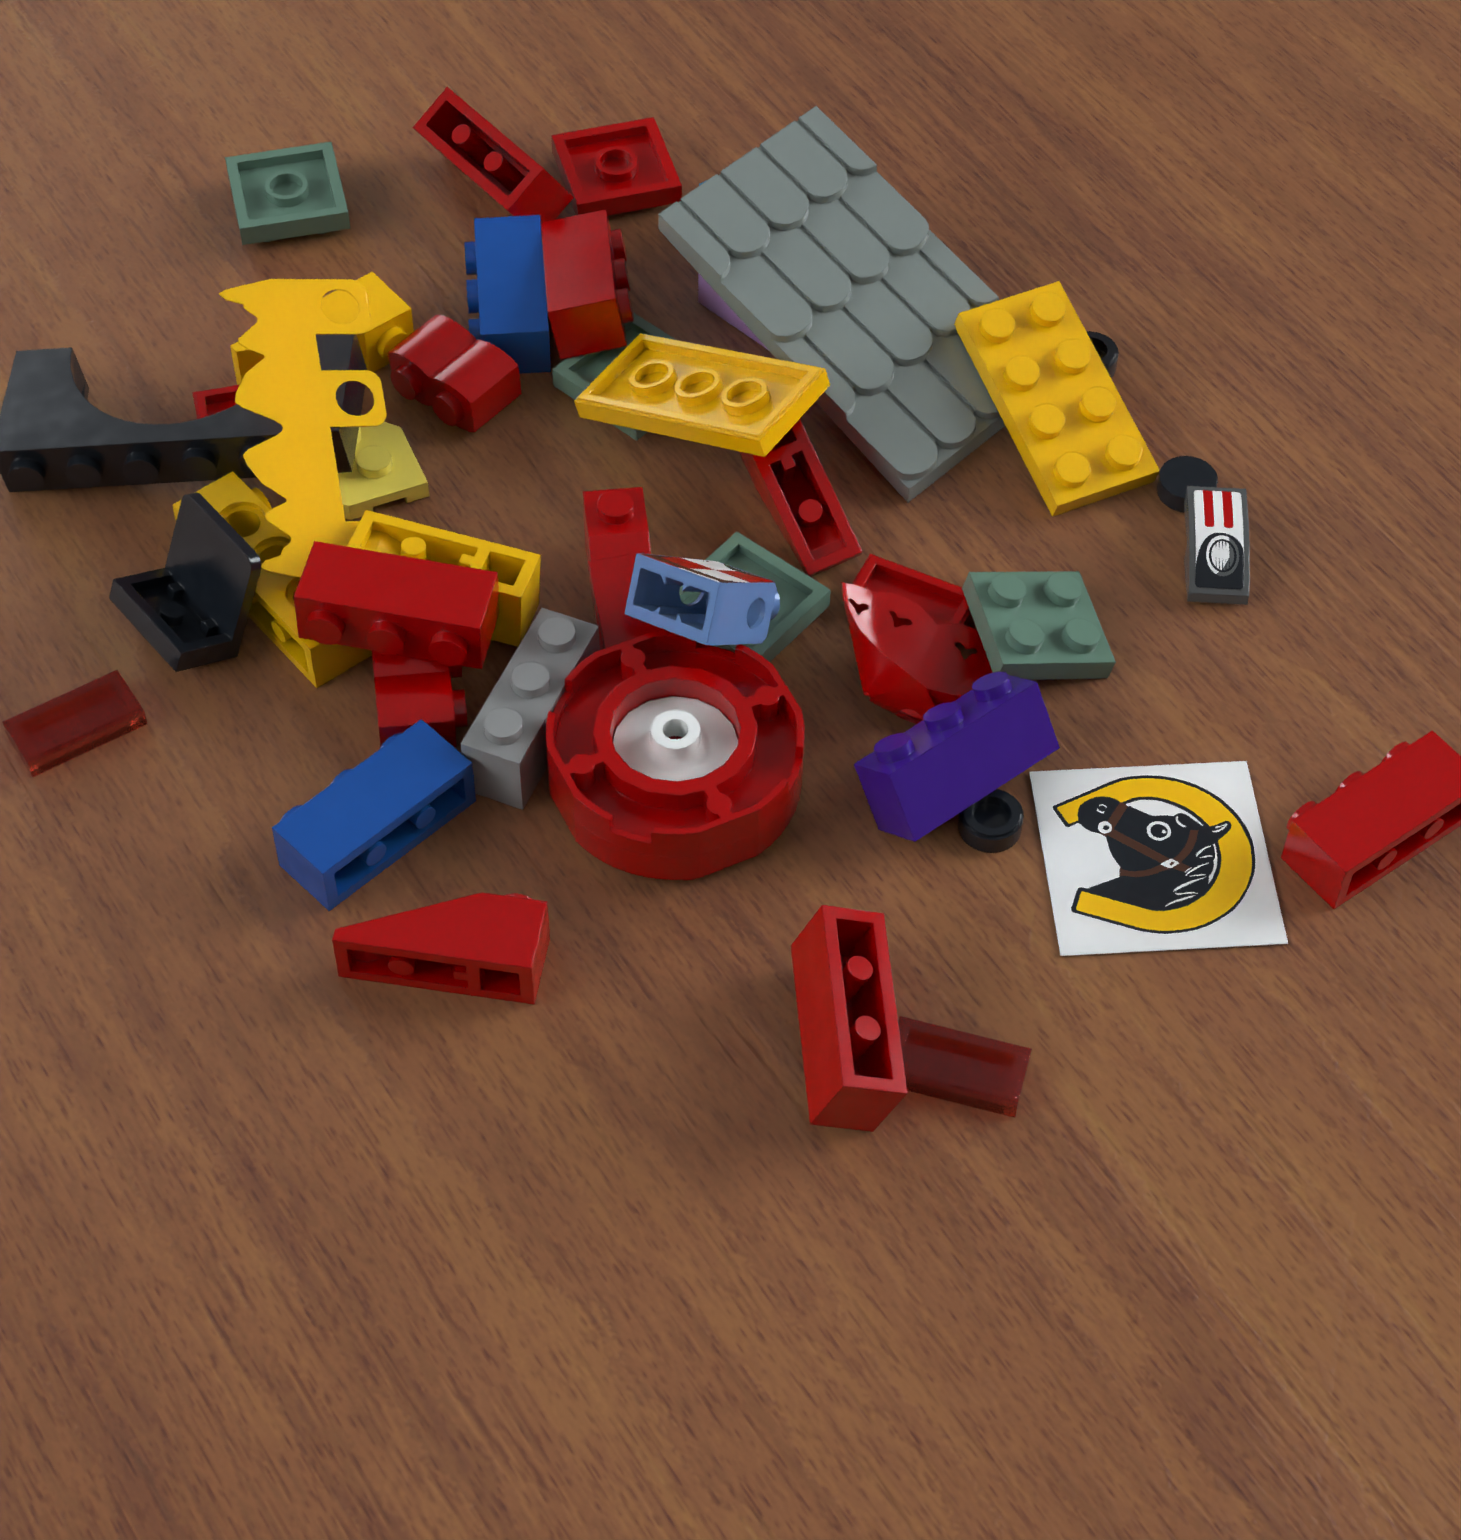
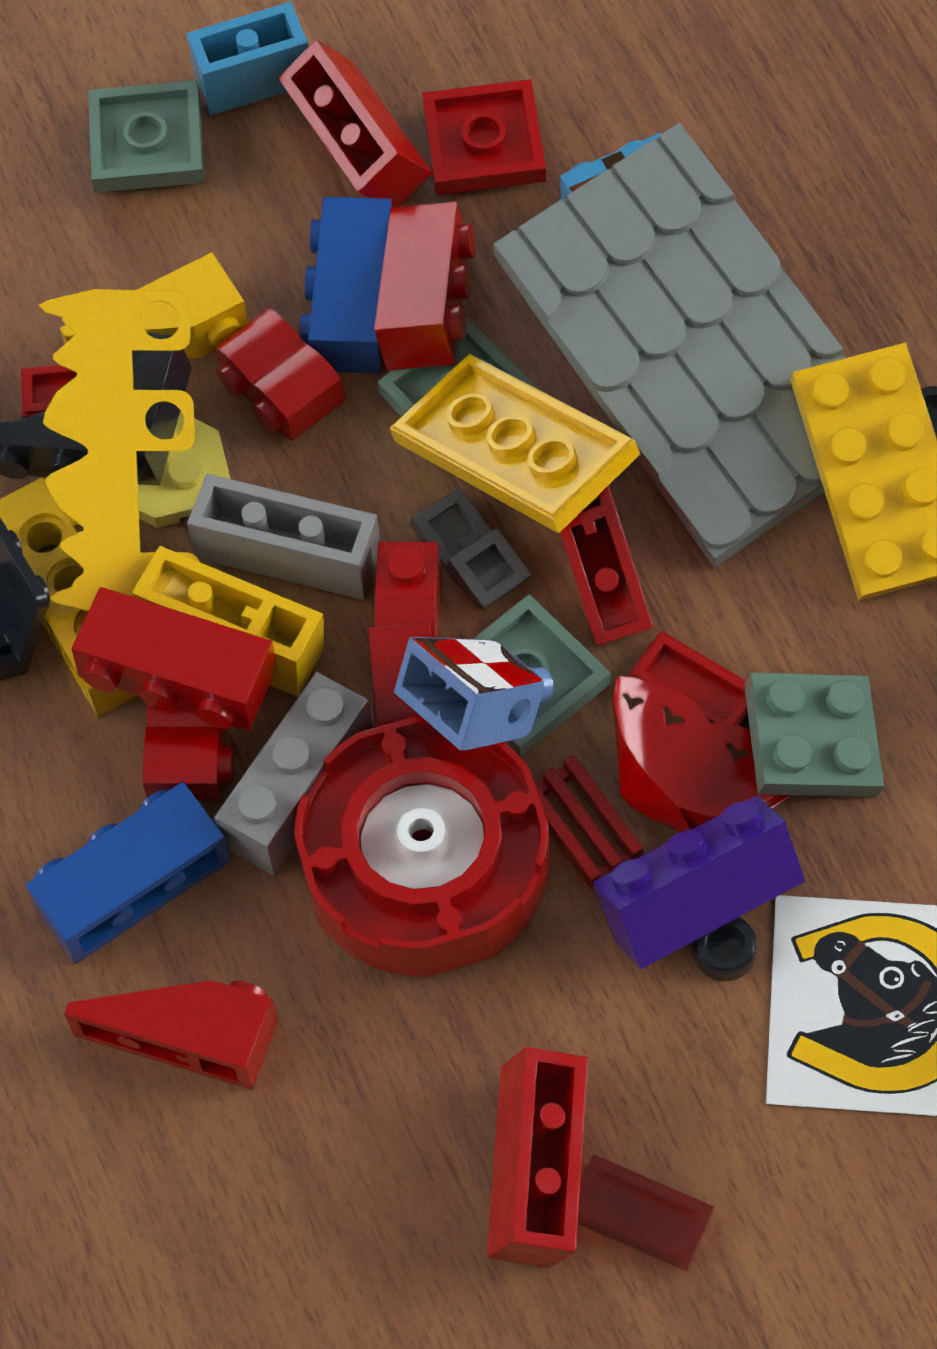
camera: 15 degrees right, 10 degrees up
(375, 116) = (245, 56): none -> dark azure brick
(490, 498) = (284, 536): none -> light grey brick
(676, 513) = (469, 550): none -> dark grey slope
(837, 722) = (556, 781): none -> red tile

